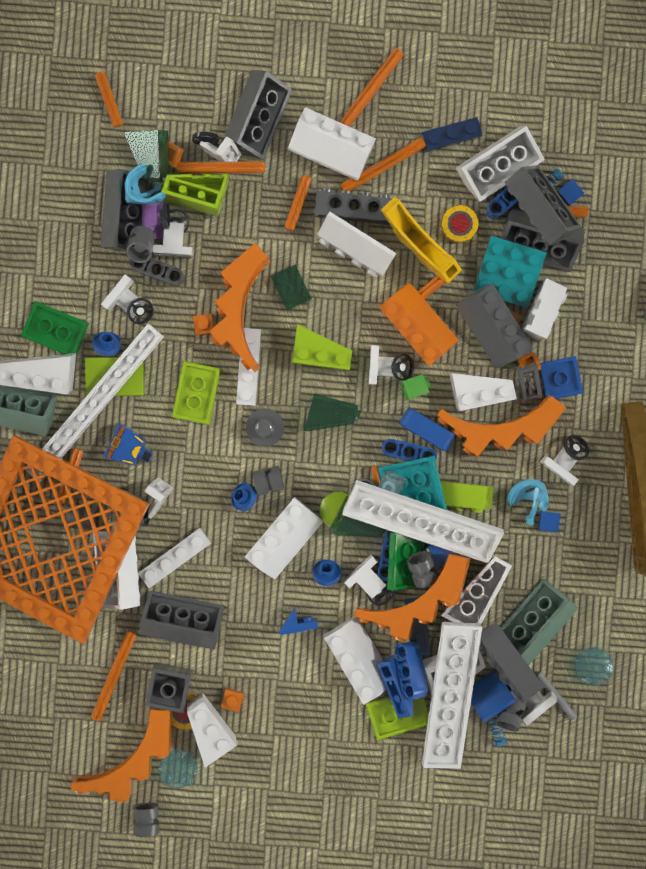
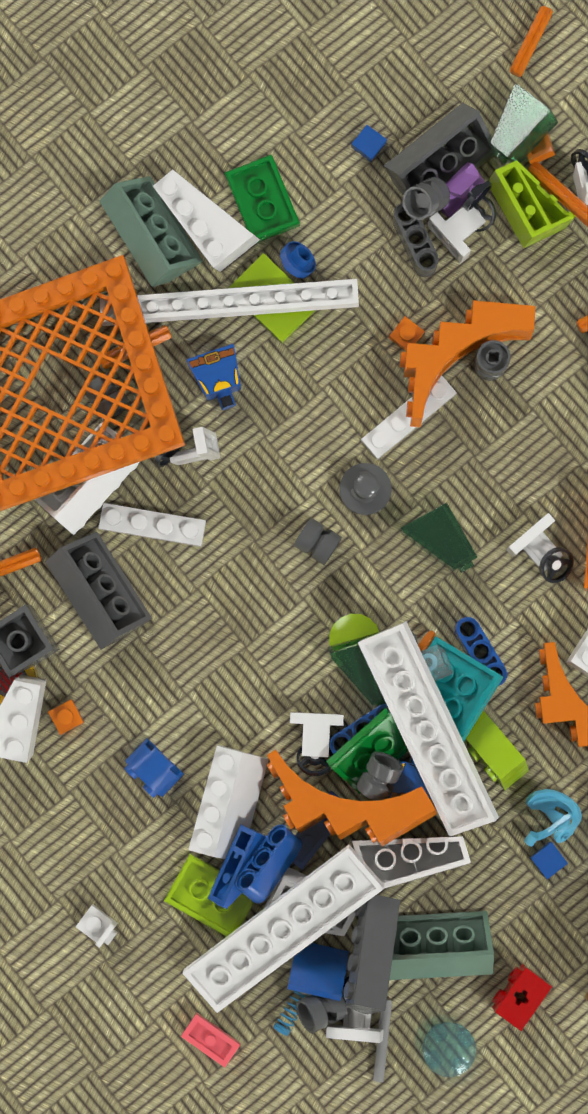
camera: 45 degrees right, 5 degrees down
(80, 242) = (369, 143): none -> blue tile
(128, 301) = (357, 240): white piece -> none
(134, 196) = (466, 148): medium azure helmet -> none
(196, 392) = (333, 391): lime tile -> none
(244, 497) = (278, 533): blue plate -> none
(261, 294) = (491, 360): none -> dark grey wheel
(284, 538) = (276, 612): white slope -> none
(291, 287) = (525, 383): clear green plate -> none
(292, 624) = (198, 703): blue slope -> none
(303, 681) = (153, 769): none -> blue cylinder
(318, 351) = (492, 469): lime wedge -> none
(326, 572) = (283, 686): blue plate -> none
(357, 786) = (97, 926): none -> white bracket
(415, 387) = (549, 595): bright green slope -> none
(427, 429) = (519, 648): blue beam -> none
(470, 784) = (210, 1039): none -> coral plate
(610, 612) = (520, 1011): none -> red brick

